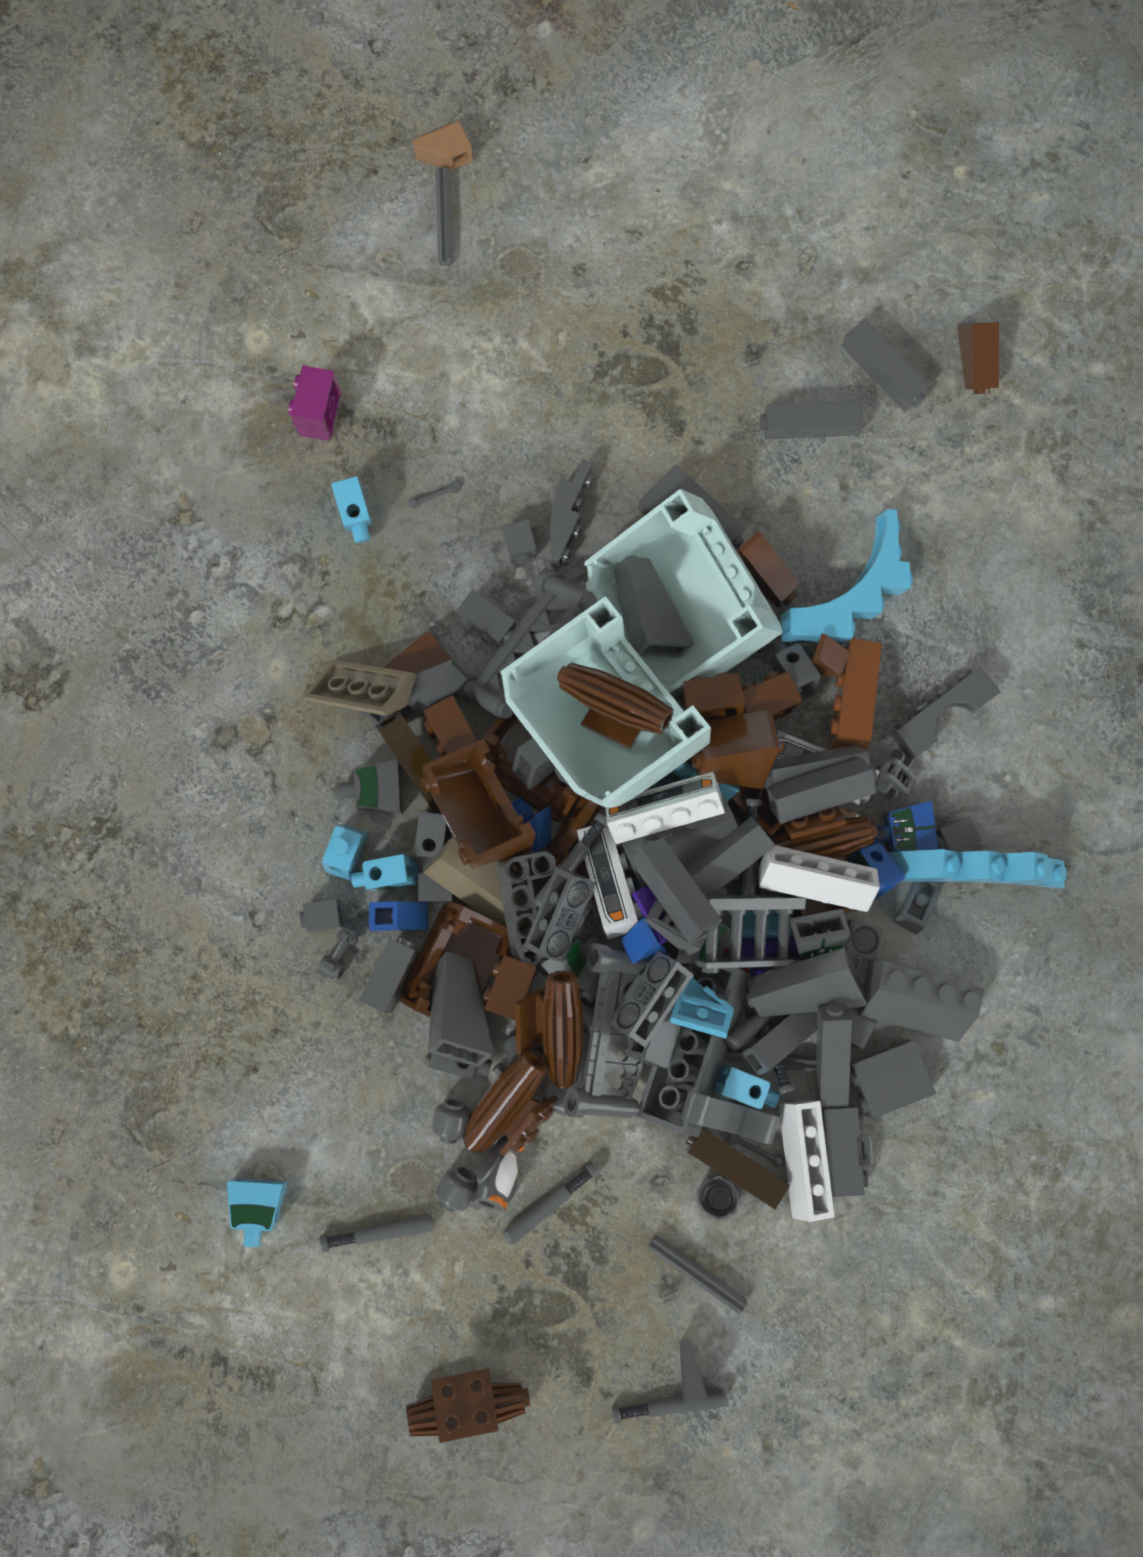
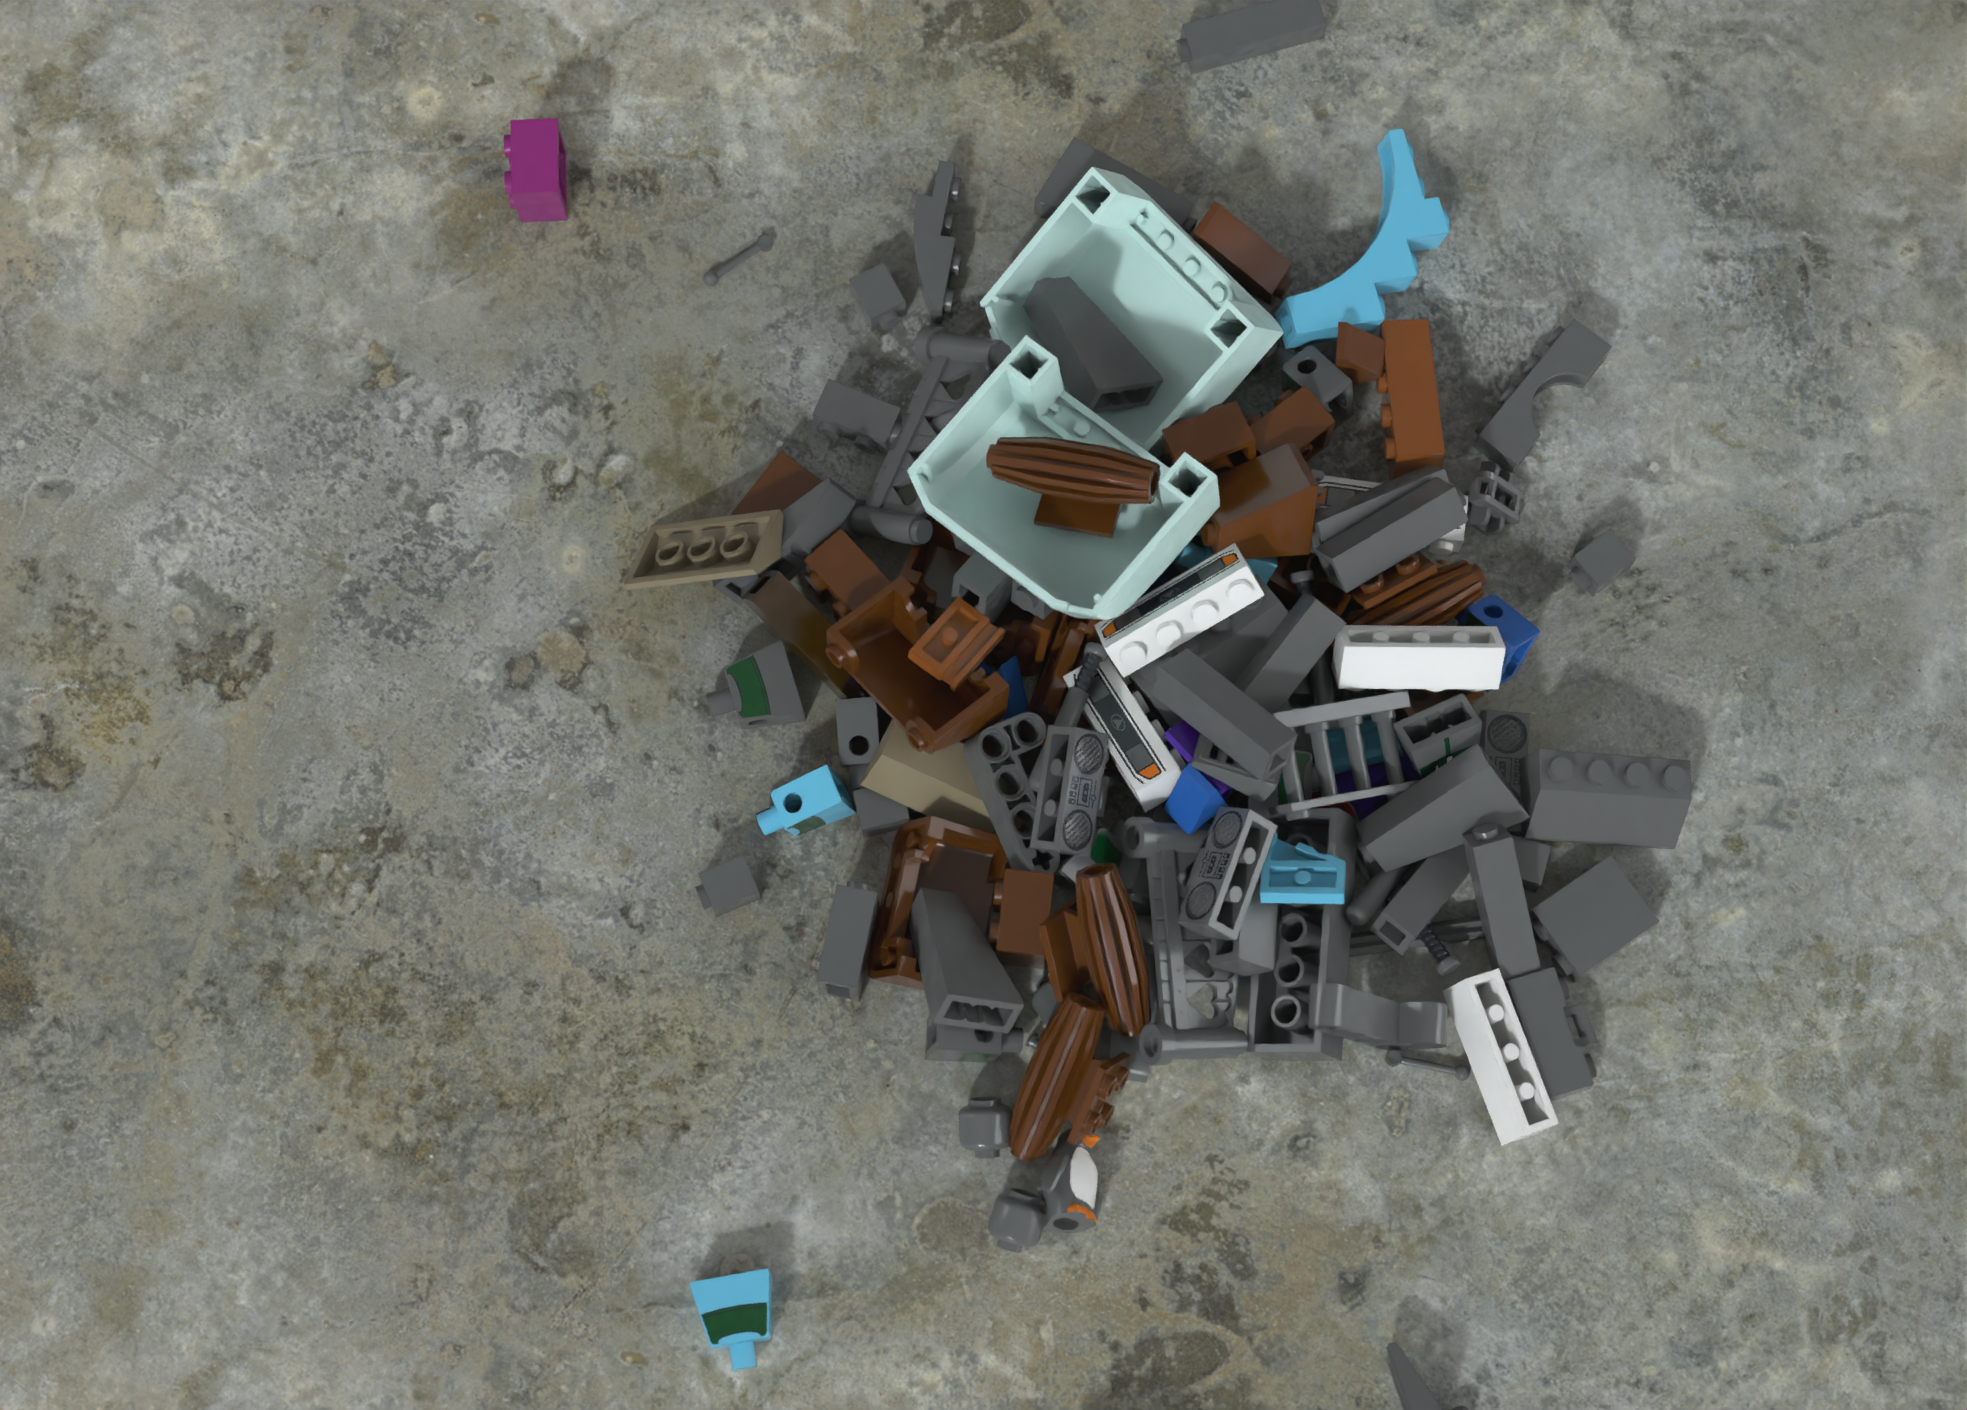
camera: 10 degrees left, 5 degrees down
(332, 966) = (760, 953): dark grey bar -> none
(344, 851) = (738, 788): medium azure torso -> none
(349, 500) = (623, 291): medium azure torso -> none
(385, 1231) = (937, 1301): dark grey piece -> none
(398, 916) = (838, 860): blue slope -> none
(509, 793) = (956, 643): none -> dark orange plate
(539, 1212) = (1146, 1220): dark grey piece -> none
(697, 1274) = (1388, 1257): dark grey axle -> none
(718, 1198) = (1389, 1141): dark grey hair -> none
(737, 1168) = (1406, 1093): dark brown brick -> none
(745, 1088) = (1391, 975): medium azure torso -> none
(909, 829) = (1533, 571): torso -> none
(918, 905) = (1571, 669): dark grey slope -> none
(981, 866) = (1642, 591): medium azure arch -> none

